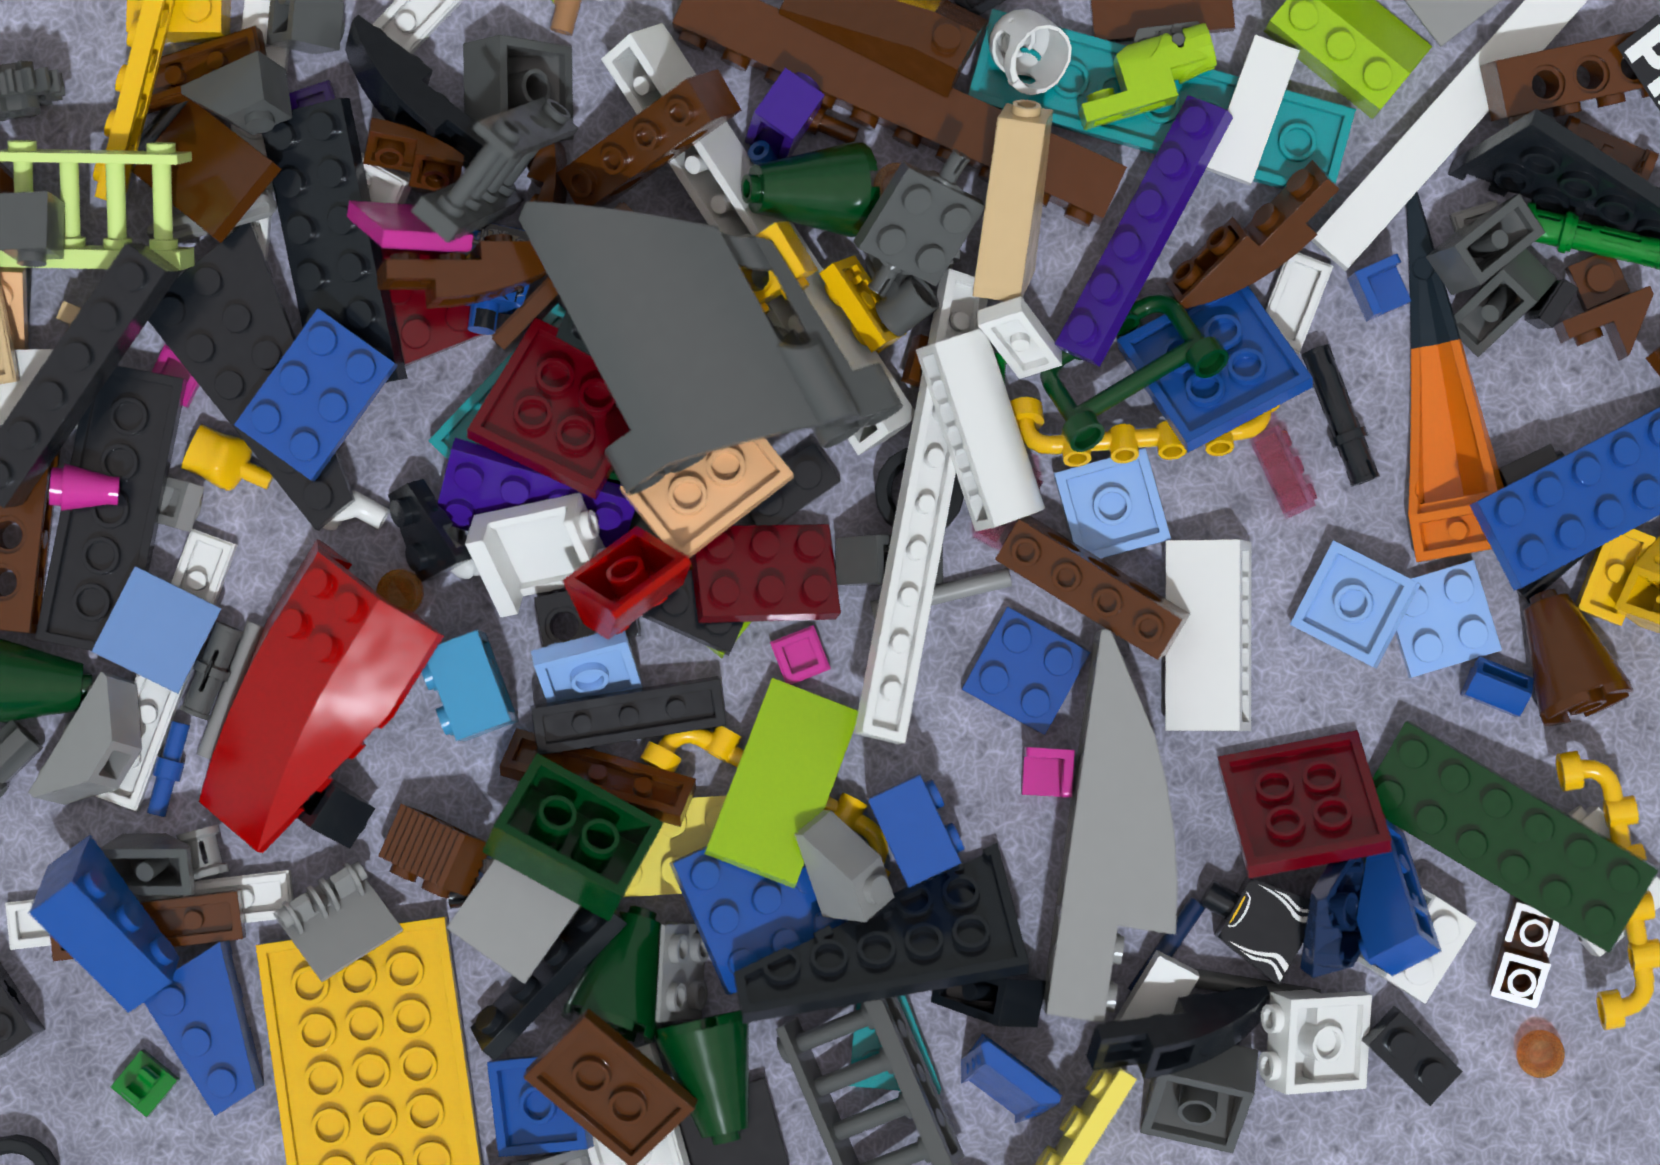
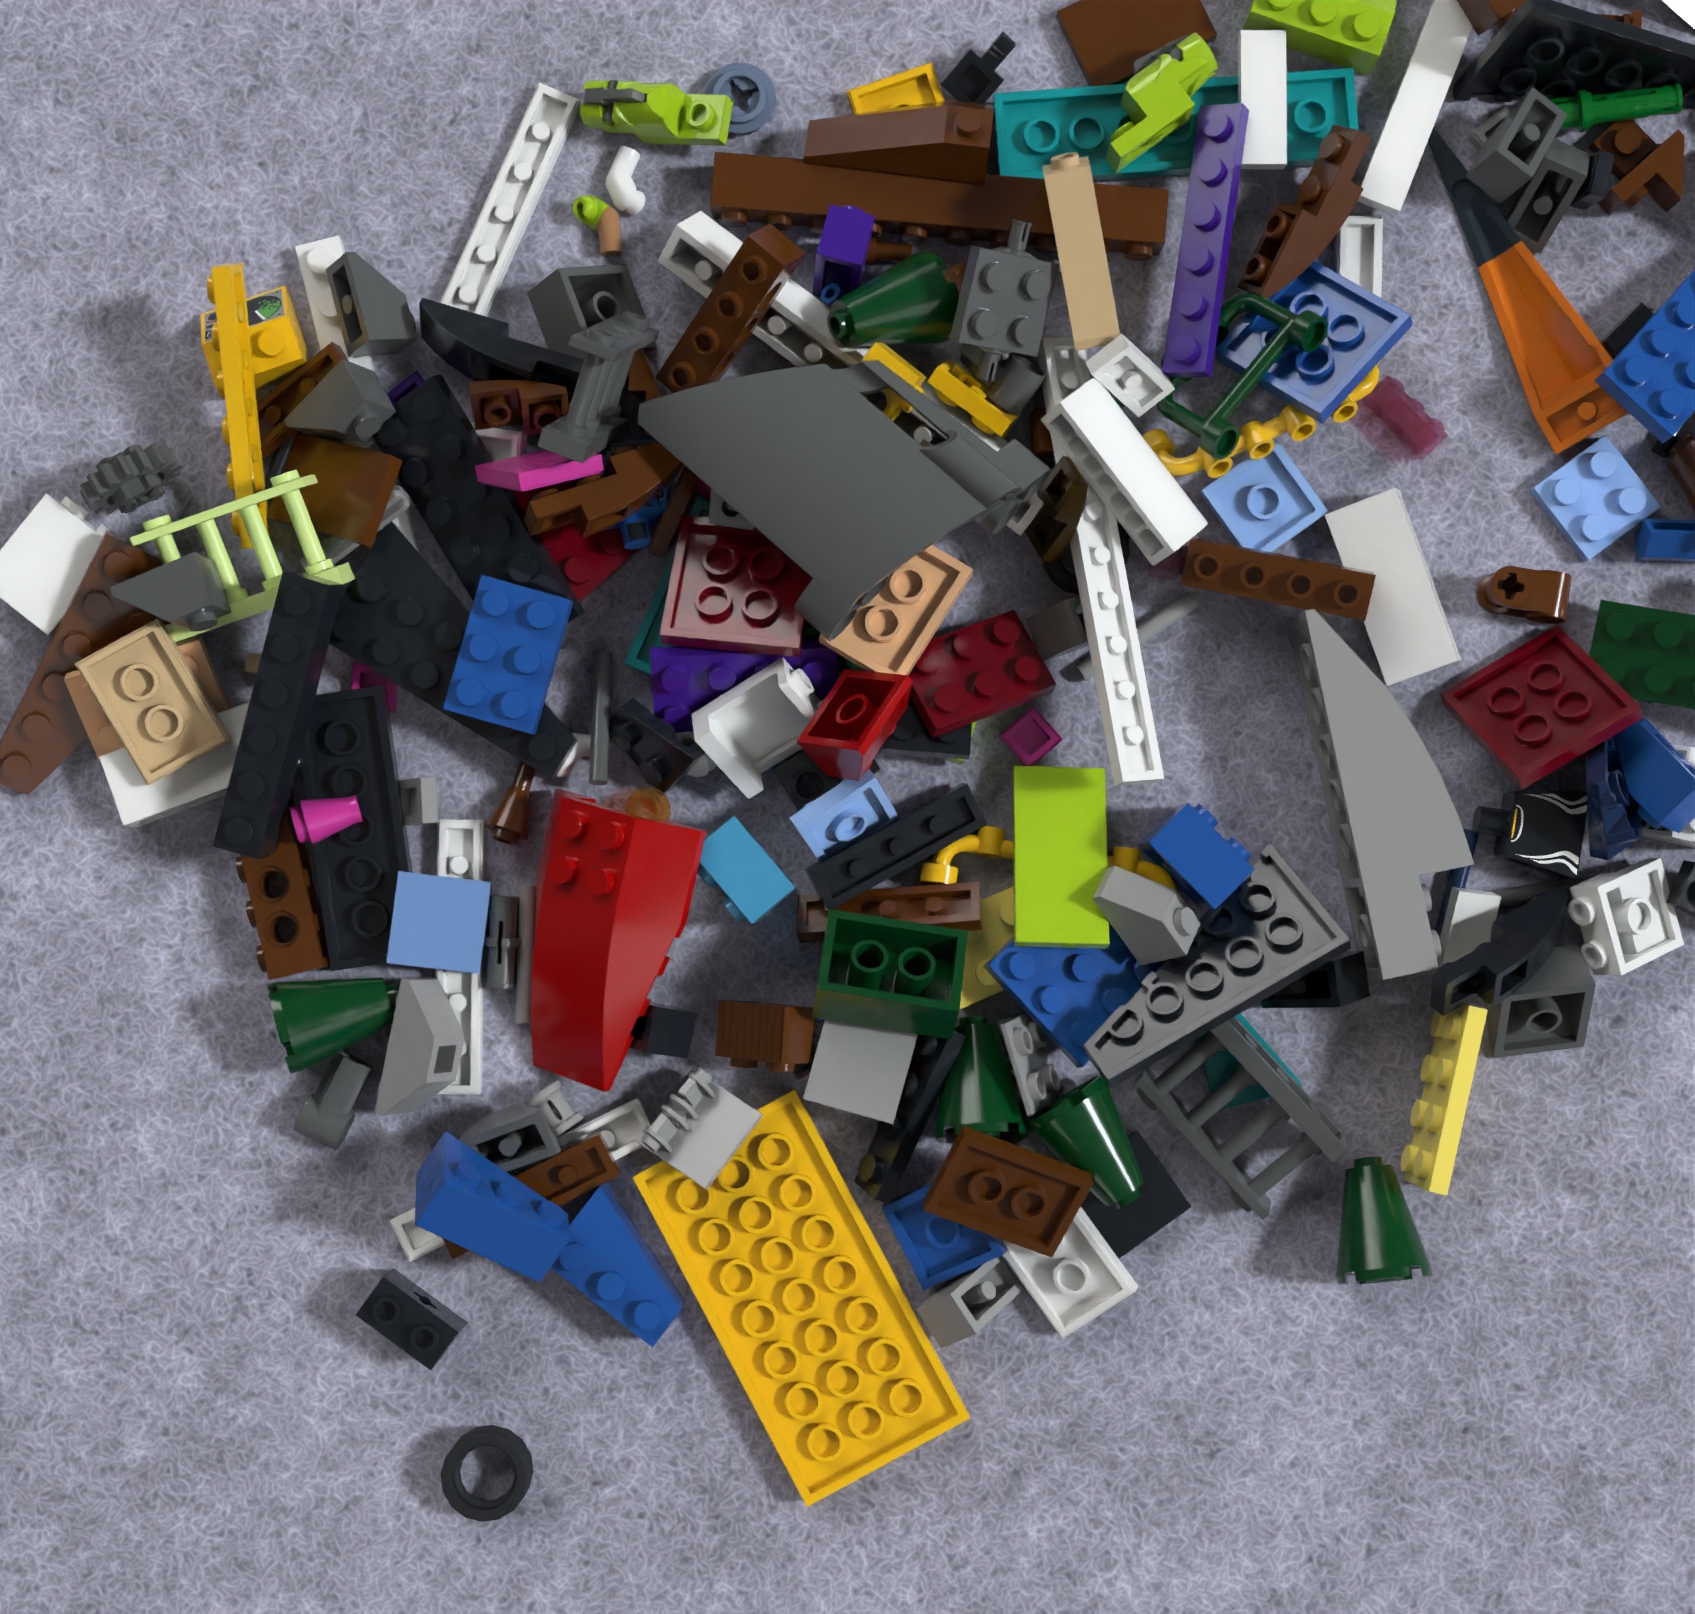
camera: 20 degrees left, 0 degrees up
(145, 1083) = (576, 1338): green tile -> none
(168, 769) = (494, 1045): blue bar -> none
(223, 460) = (444, 747): yellow piece -> none
(265, 549) = (512, 813): none -> reddish brown cone
(385, 485) = (600, 717): none -> dark grey bar
(811, 480) = (986, 576): black plate -> none
(900, 450) = (1064, 503): none -> dark brown slope
(1008, 1080) = (1361, 1053): blue slope -> none
(1026, 671) = (1239, 678): blue plate -> none
(1036, 32) = (1044, 98): white helmet -> none
(1047, 772) = (1294, 761): dark pink panel -> none
(1342, 421) = (1442, 352): black pin -> none
(1345, 692) = (1533, 594): none -> reddish brown piece
(1355, 604) = (1516, 511): light blue plate -> none
(1379, 288) = (1431, 221): blue panel -> none

